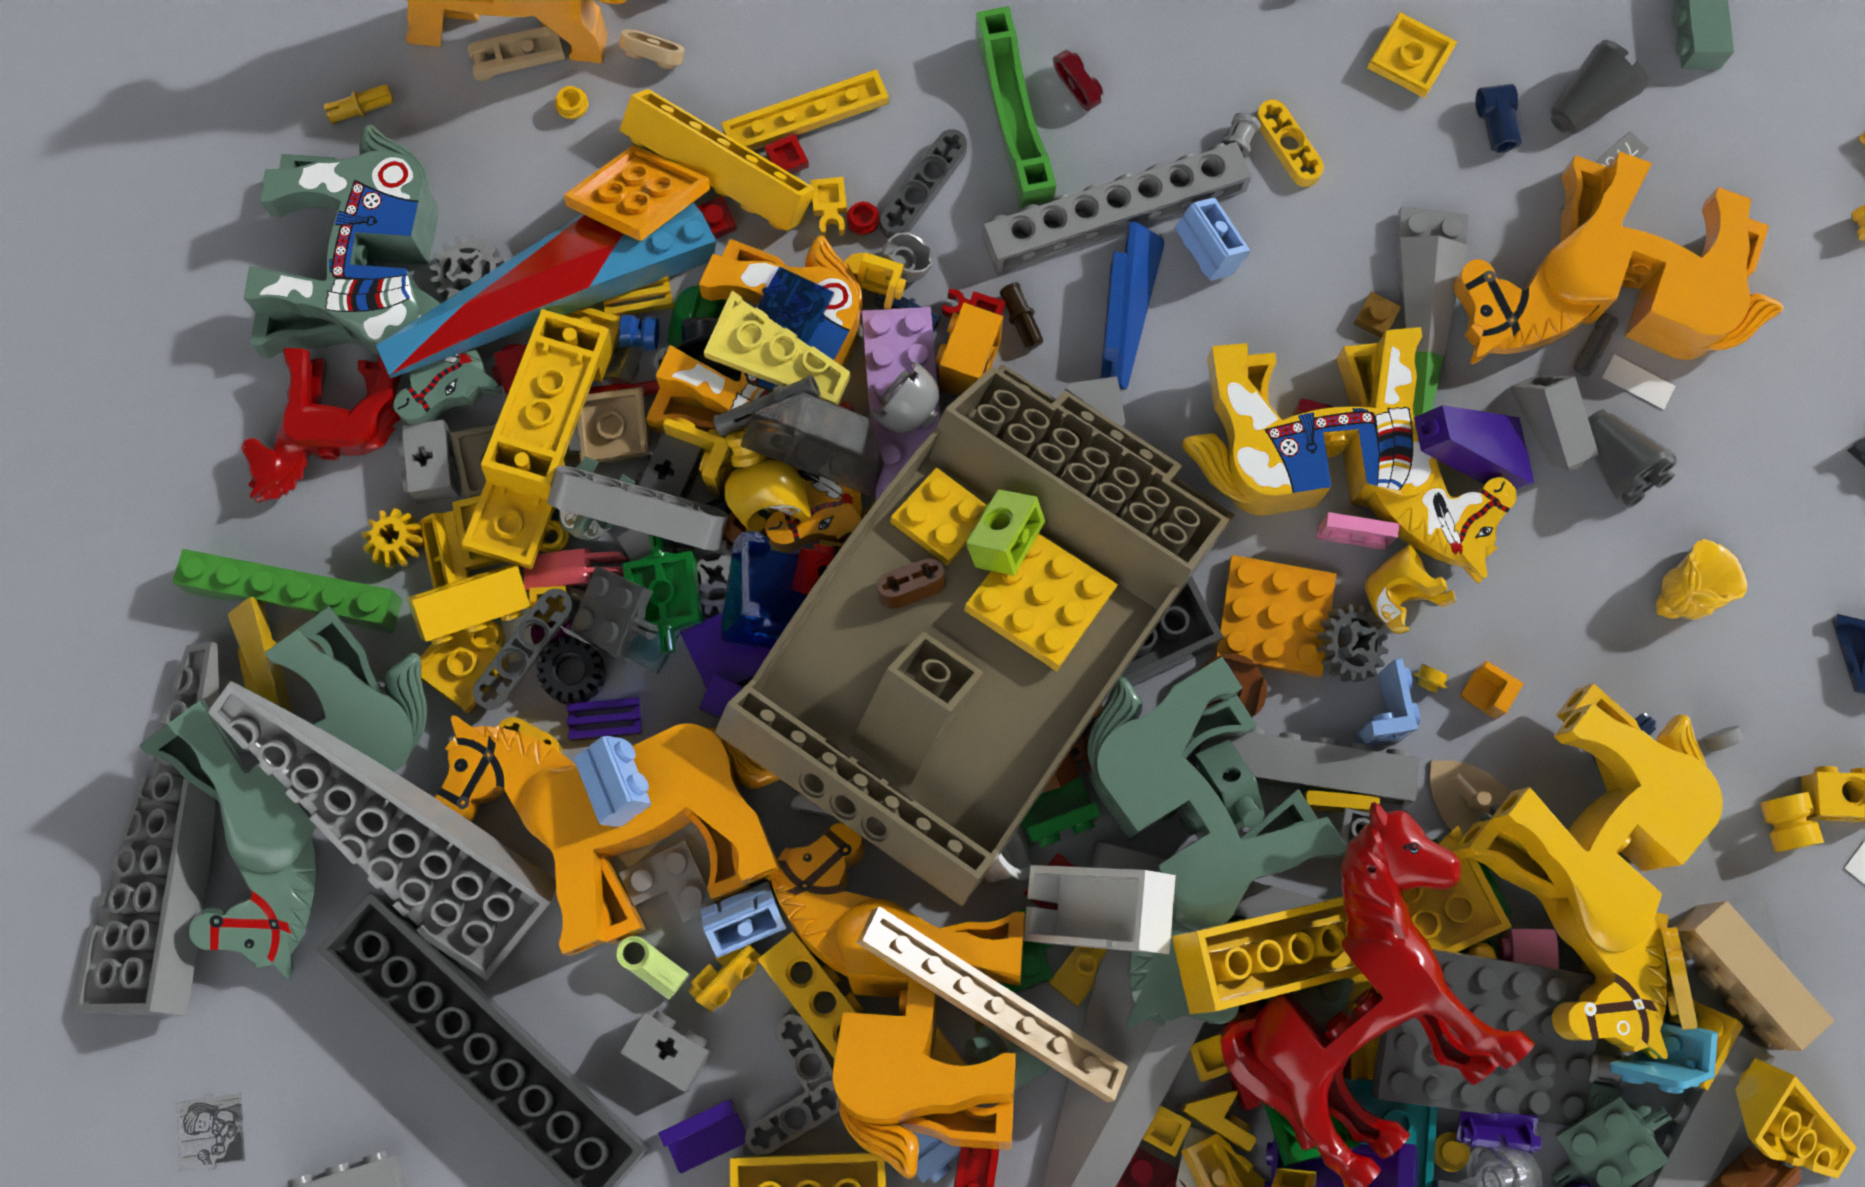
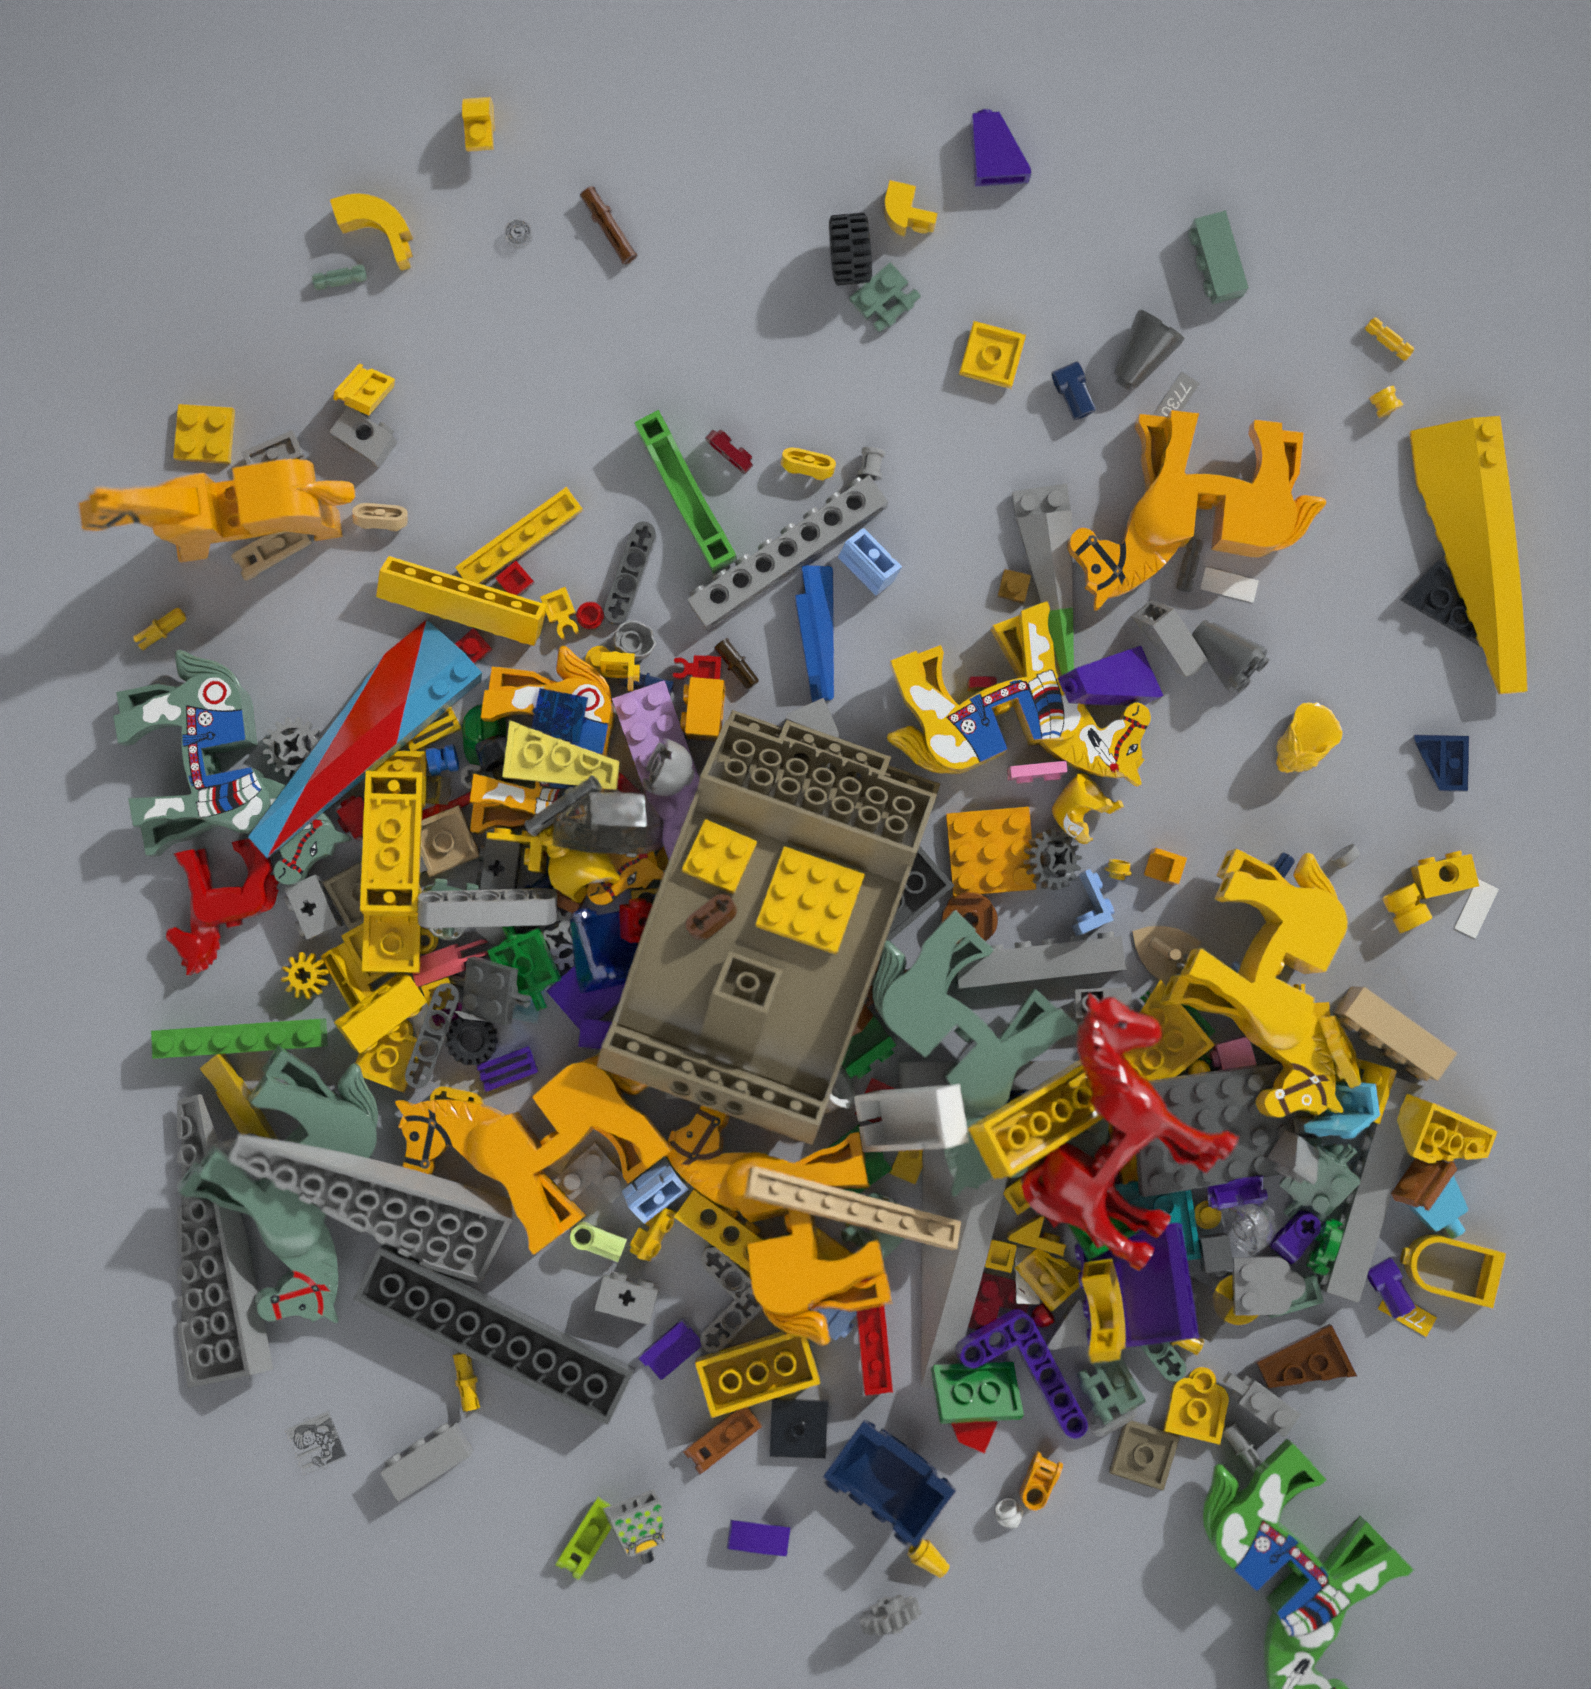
camera: 15 degrees left, 10 degrees up
(428, 1104) = (466, 1382): none -> yellow pin
(571, 103) = (329, 580): yellow plate -> none
(613, 781) = (533, 1122): light blue brick -> none
(637, 192) = (407, 648): light orange plate -> none
(1005, 532) = (775, 874): lime brick -> none
(1153, 111) = (808, 463): none -> yellow plate
(1239, 795) = (995, 1010): sand green torso -> none
(1289, 158) = (912, 446): yellow beam -> none
(1339, 801) = (1070, 983): yellow tile -> none
(1590, 1103) = (1295, 1158): none -> light grey slope

